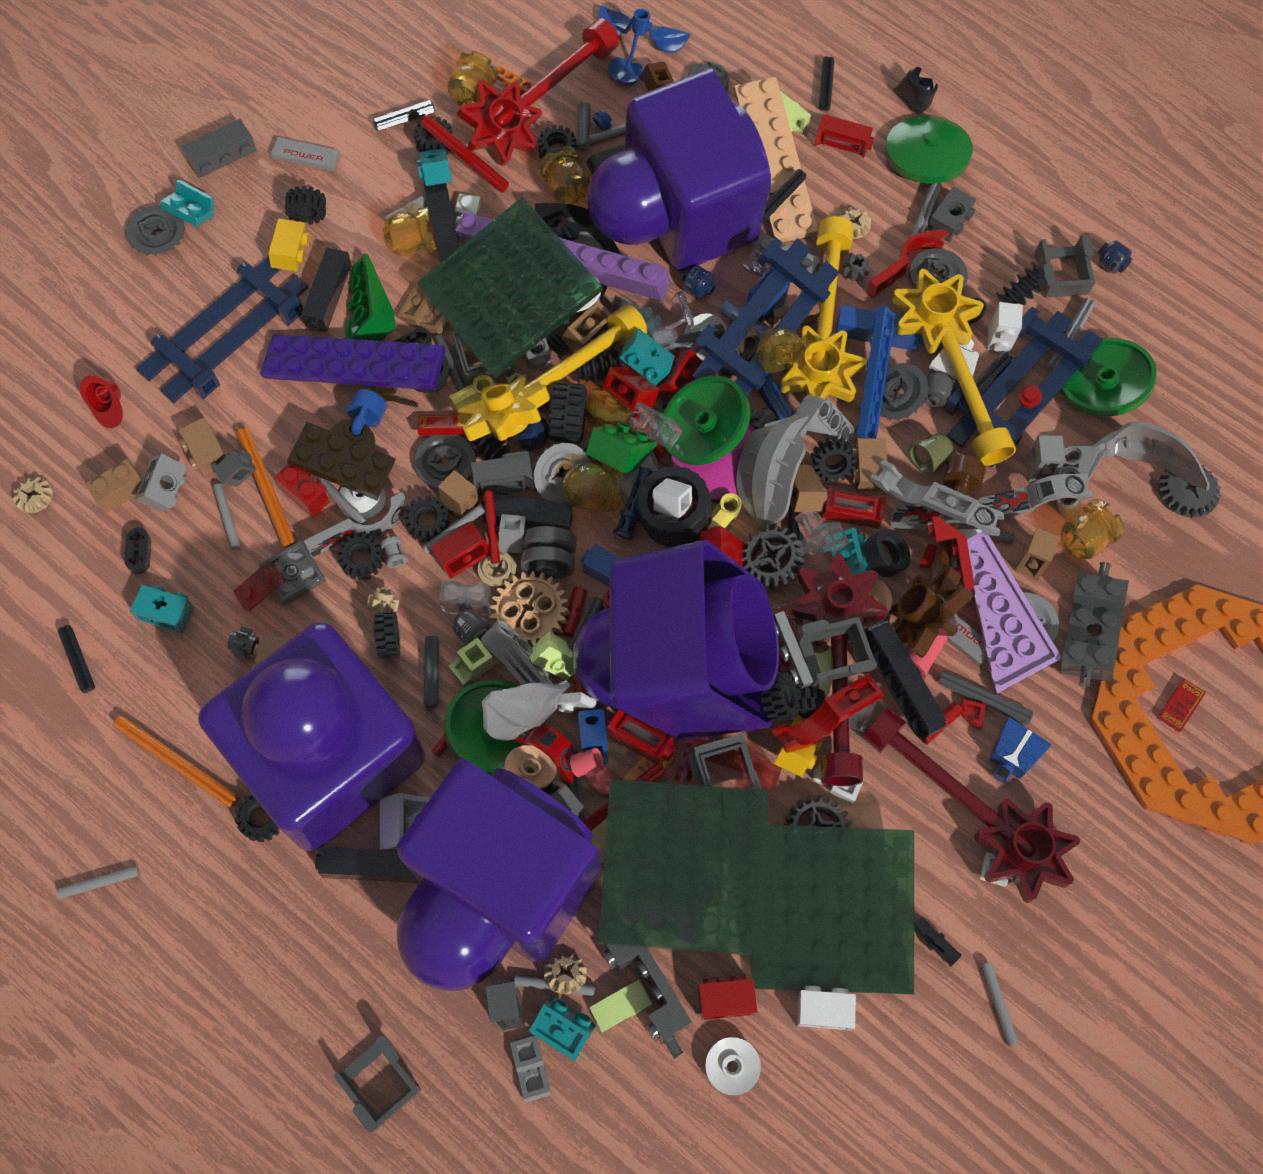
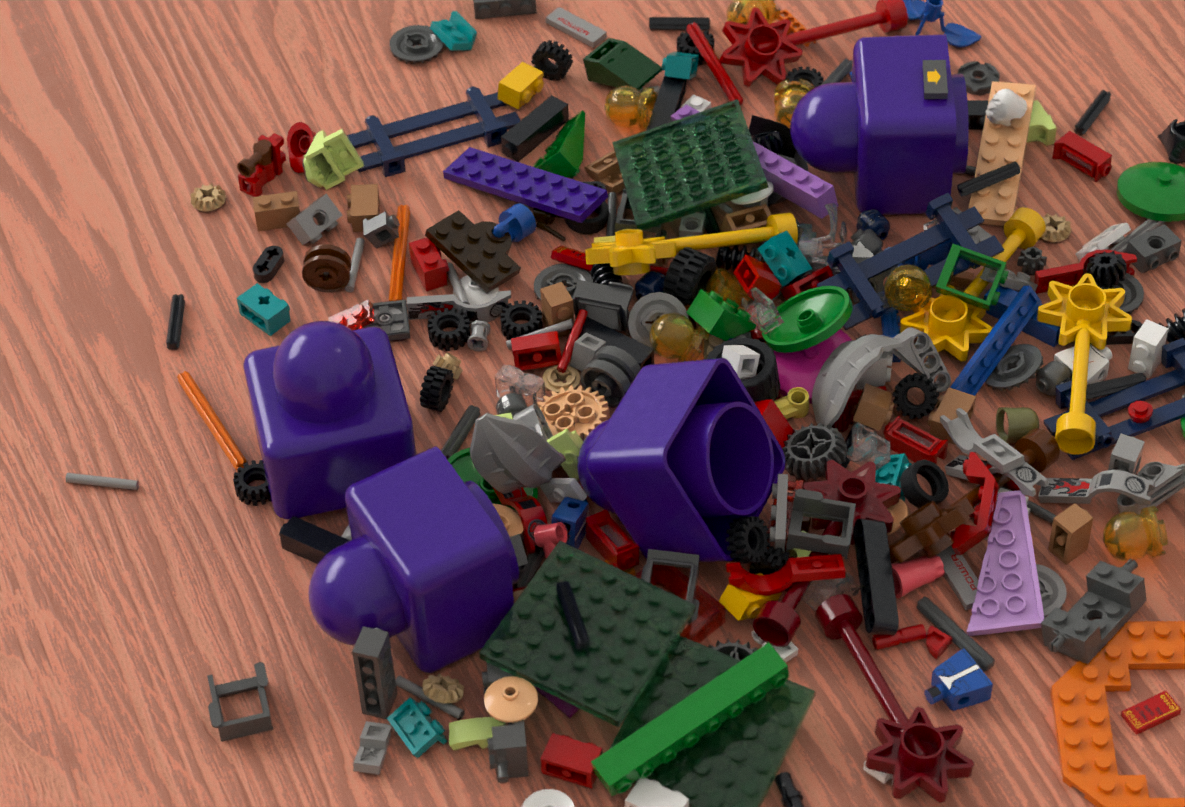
camera: 30 degrees right, 20 degrees down
(73, 438) = (262, 165): none -> red hips
(141, 406) = (330, 159): none -> yellowish green piece
(204, 538) = (326, 268): none -> reddish brown wheel
(376, 188) = (619, 64): none -> dark green slope
(651, 991) = (513, 707): none -> light nougat dish
(669, 863) = (573, 615): none -> black axle
(705, 304) = (868, 240): none -> dark grey head
(728, 125) = (935, 79): none -> dark grey tile
(766, 112) = (1005, 107): none -> white hair
(808, 310) = (950, 265): none -> green window
(826, 920) = (690, 719): none -> green piece
(852, 298) = (1013, 281): none -> light grey hinge
(905, 223) = (1101, 242): none -> white hinge
(928, 254) = (1107, 268): none -> black gear

